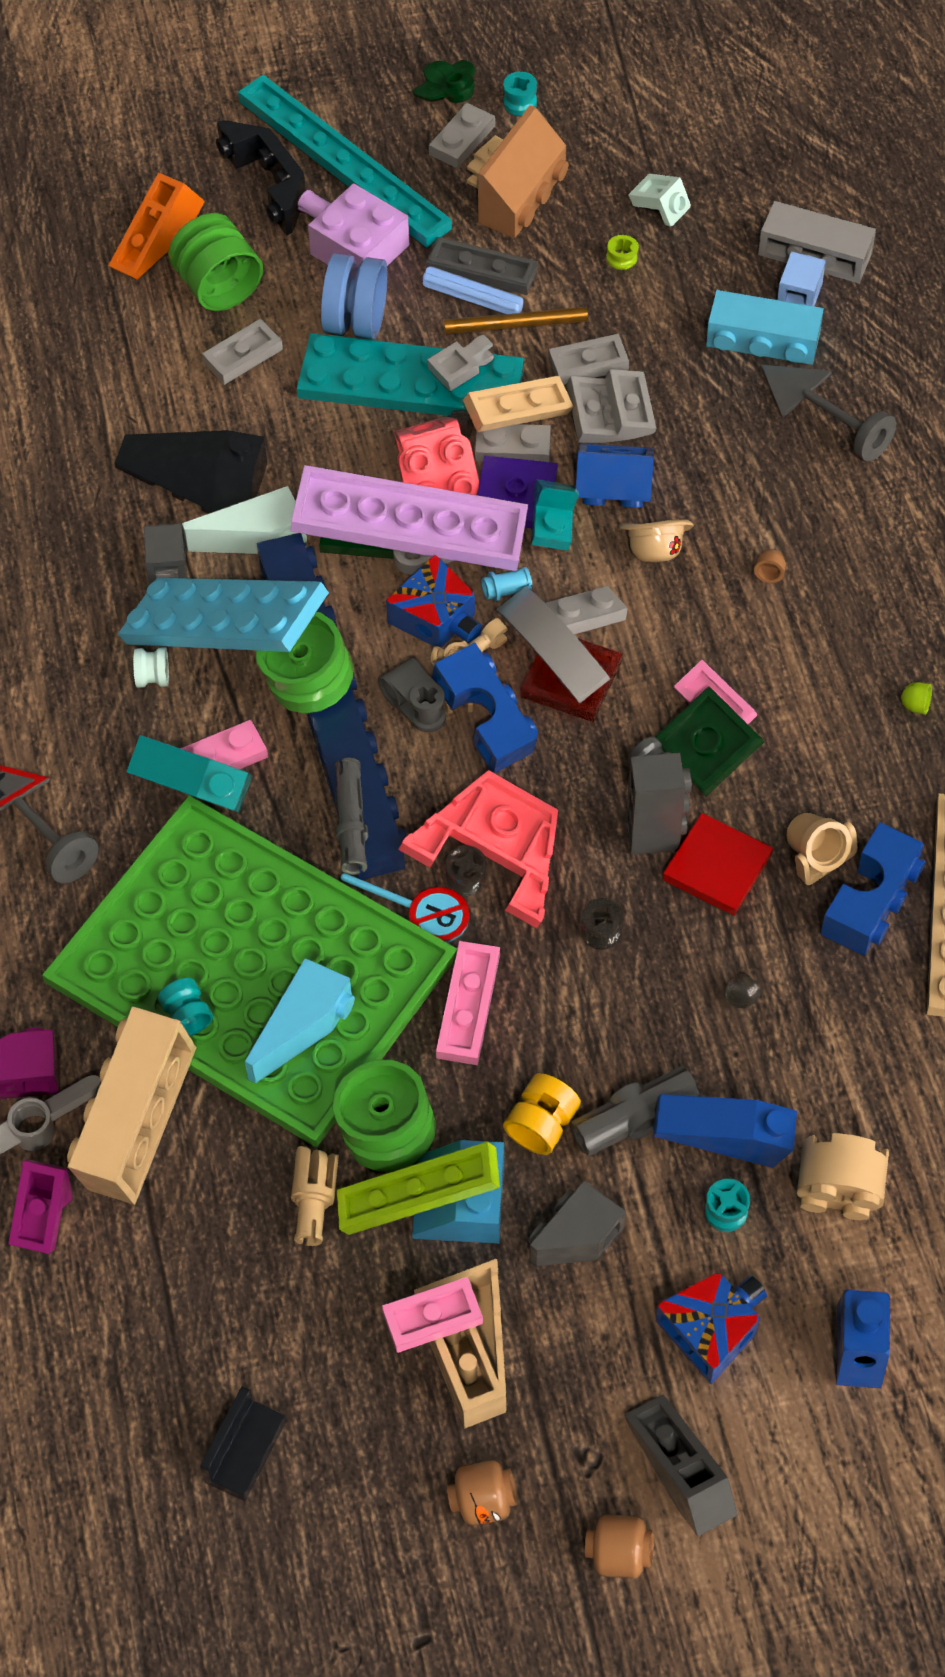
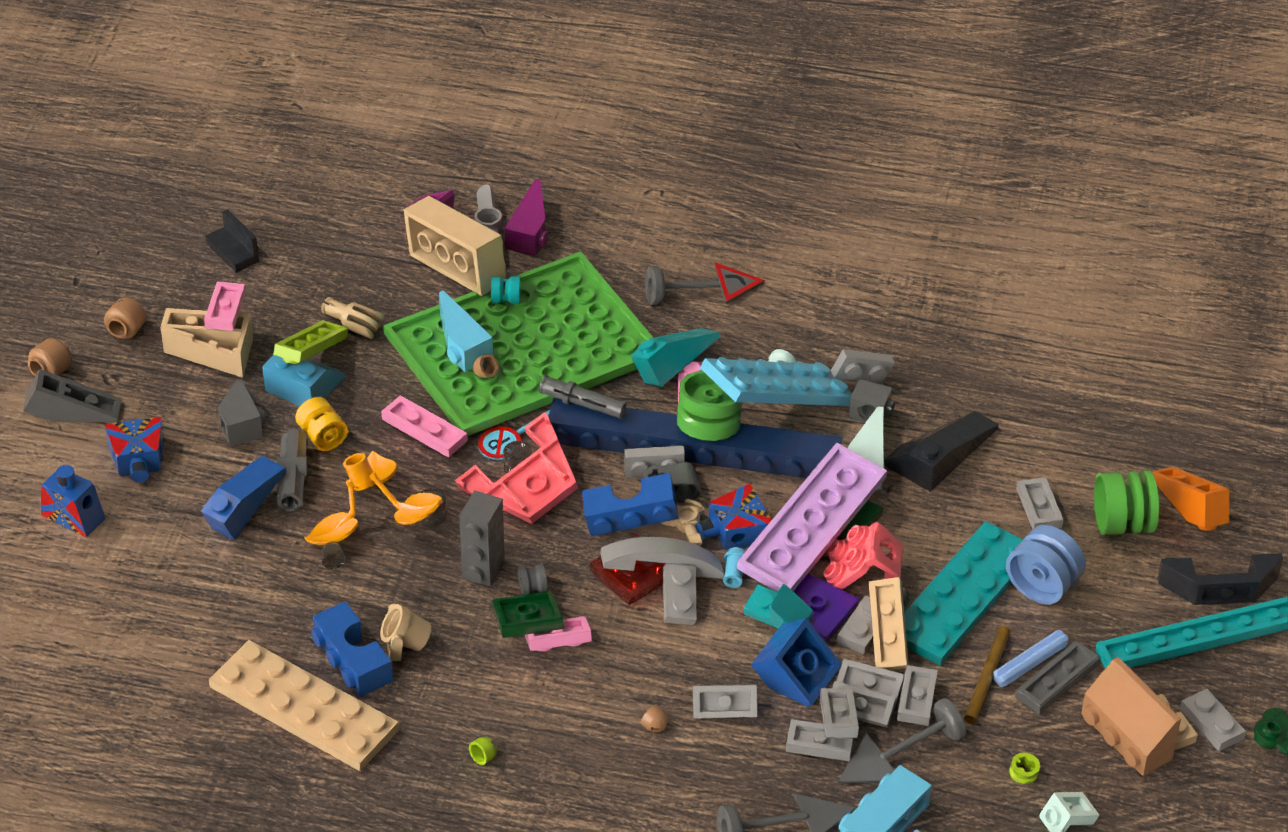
camera: 115 degrees right, 15 degrees down
(117, 573) = (862, 365): none -> light grey plate
(344, 961) = (490, 367): none -> medium nougat hinge
(355, 226) = (1124, 601): lavender brick -> none
(384, 716) = (639, 459): none -> light grey plate
(384, 1115) = (372, 352): bright green wheel -> none
(459, 364) = (944, 598): light grey plate -> none
(519, 92) = (1232, 773): teal wheel -> none
(585, 1015) = (364, 474): none -> light orange plant
(656, 540) = (719, 654): tan hat -> none
(672, 396) = (839, 713): none -> light grey plate
(698, 370) = (871, 764): none -> dark grey piece
(703, 415) = (810, 739): none -> light grey plate
(704, 505) = (724, 701): none -> light grey plate
(717, 864) = (434, 586): red tile -> none
(729, 1195) = (199, 485): teal wheel -> none
(842, 1175) = (168, 531): tan brick -> none

